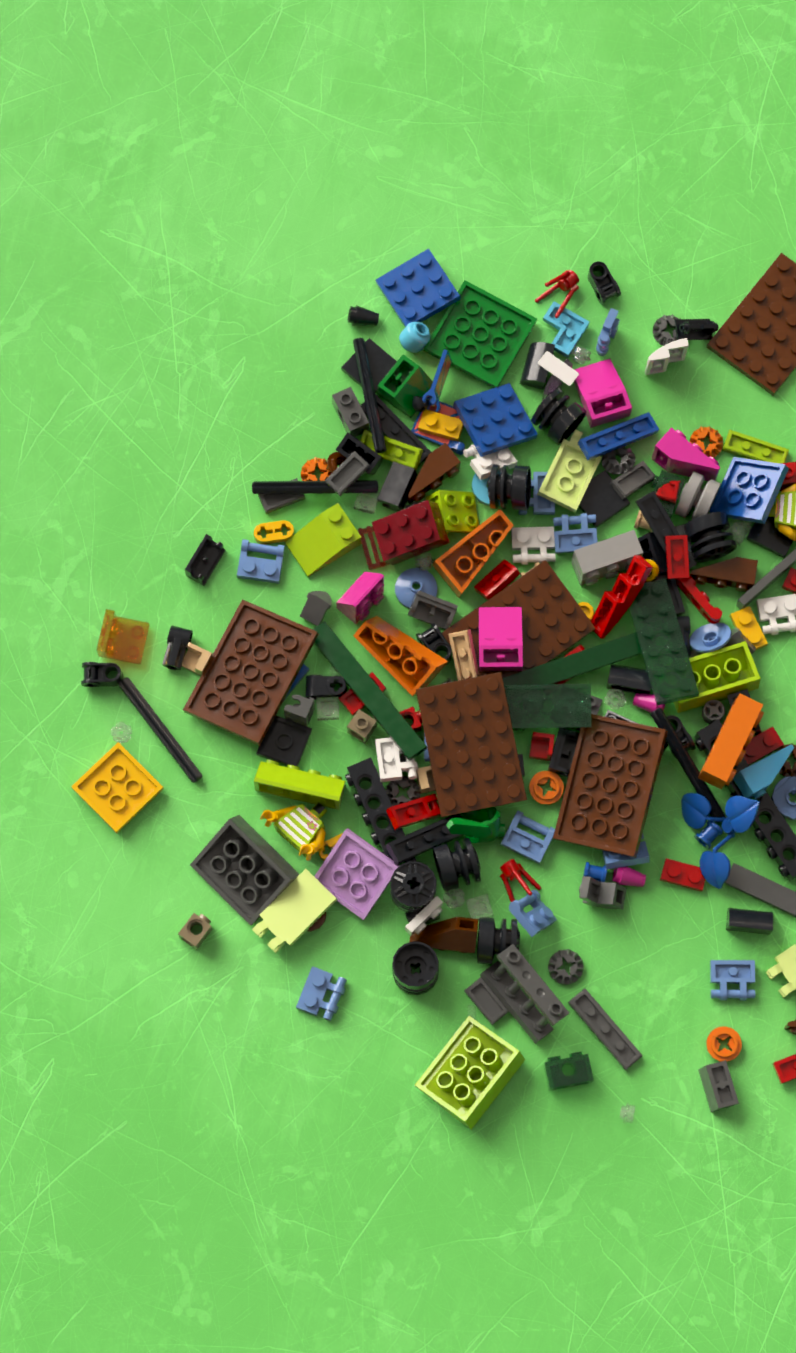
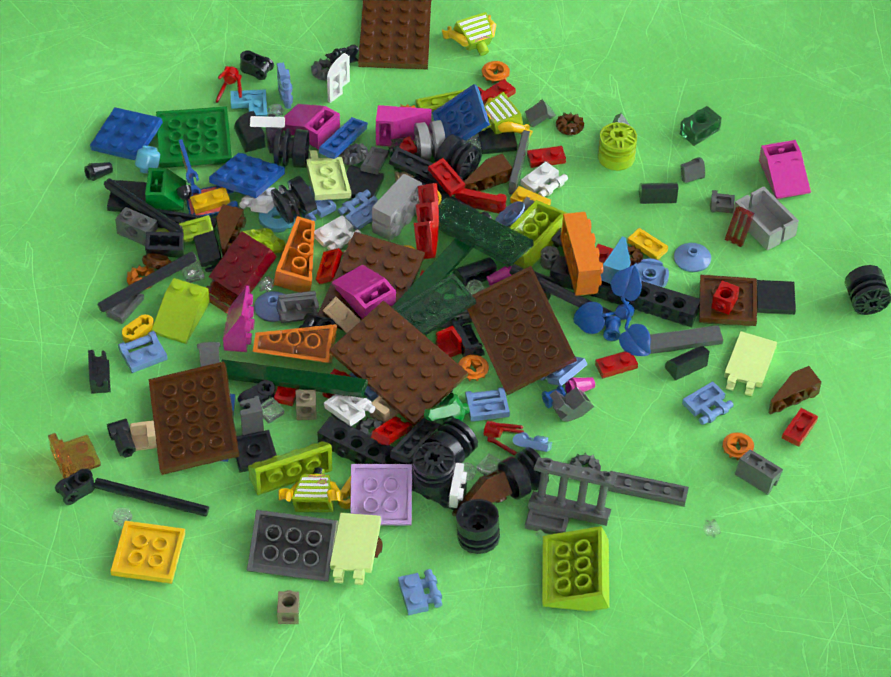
camera: 35 degrees left, 25 degrees down
(347, 473) = (166, 256): dark grey tile -> none
(556, 1078) = (646, 527): clear green brick -> none

